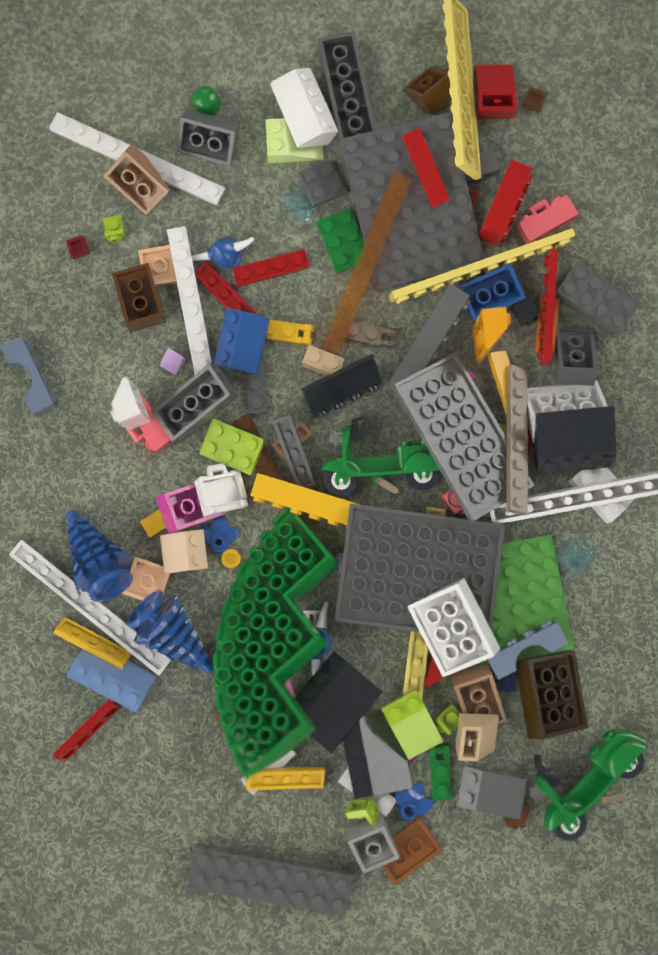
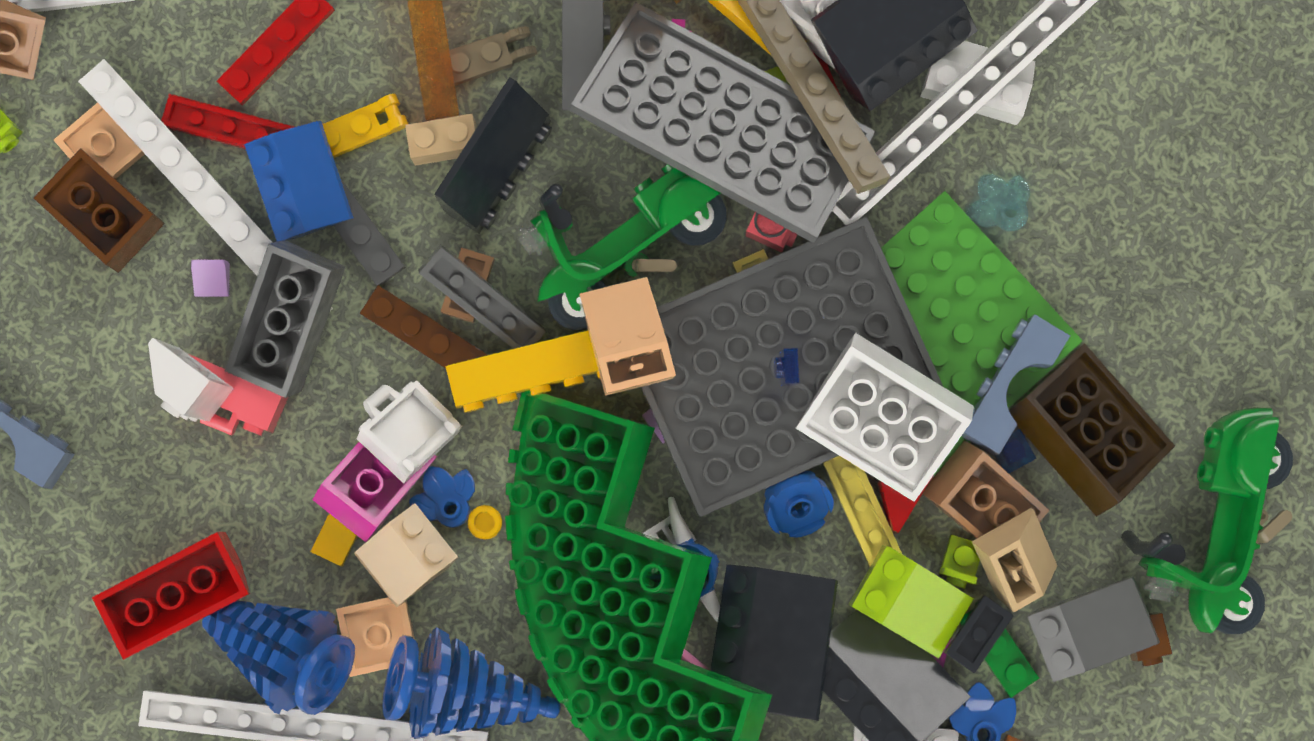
camera: 30 degrees left, 0 degrees up
(62, 502) = (172, 594): none -> red slope
(225, 252) = (190, 63): blue helmet -> none
(232, 446) = (382, 351): lime plate -> none
(352, 512) = (627, 336): none -> light nougat slope
(383, 635) = (799, 488): none -> blue plate
(420, 574) = (787, 367): none -> clear blue plate
(435, 760) = (978, 634): none -> black plate

